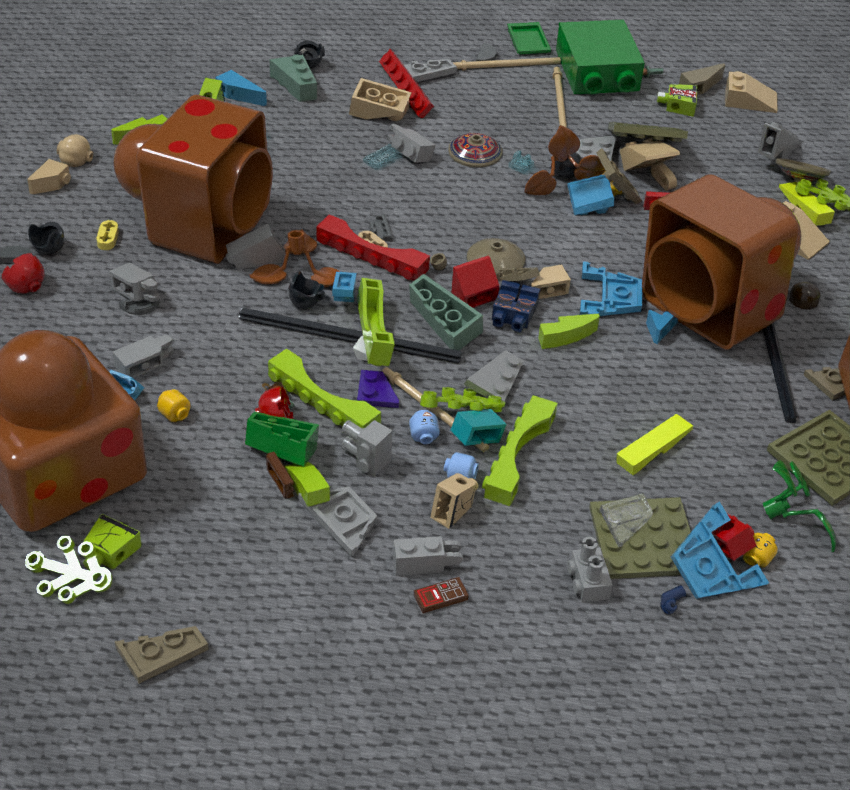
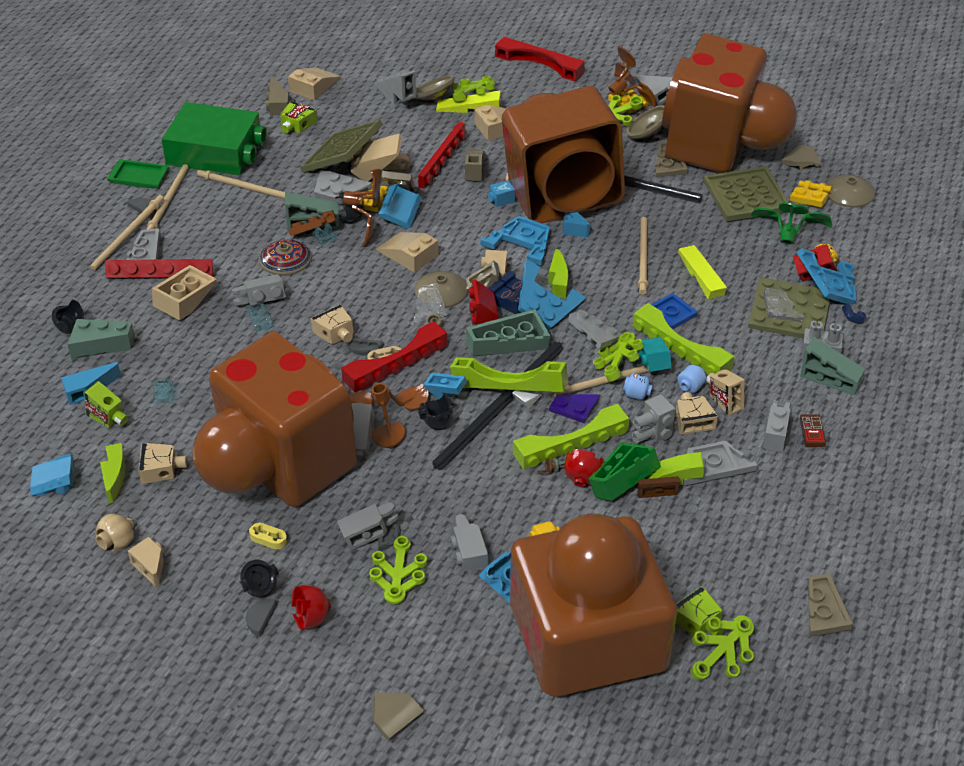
camera: 65 degrees left, 0 degrees up
(94, 321) = (398, 572): none -> lime plant
(127, 105) = (53, 476): none -> dark azure slope
(393, 199) = (333, 325): none -> tan torso
(406, 481) = (694, 414): none -> tan torso
(449, 54) = (153, 205): none -> tan bar
(460, 249) = (429, 302): none -> clear wing
(505, 324) = (548, 306): none -> dark azure wing
(522, 145) = (313, 222): none -> dark orange hinge
(534, 137) = (303, 207): none -> sand green wedge
(535, 221) = (410, 249): none -> tan slope
(547, 586) = (831, 368): none -> sand green wedge
(571, 434) = (675, 310): none -> blue tile
(602, 400) = (643, 283): none -> tan bar

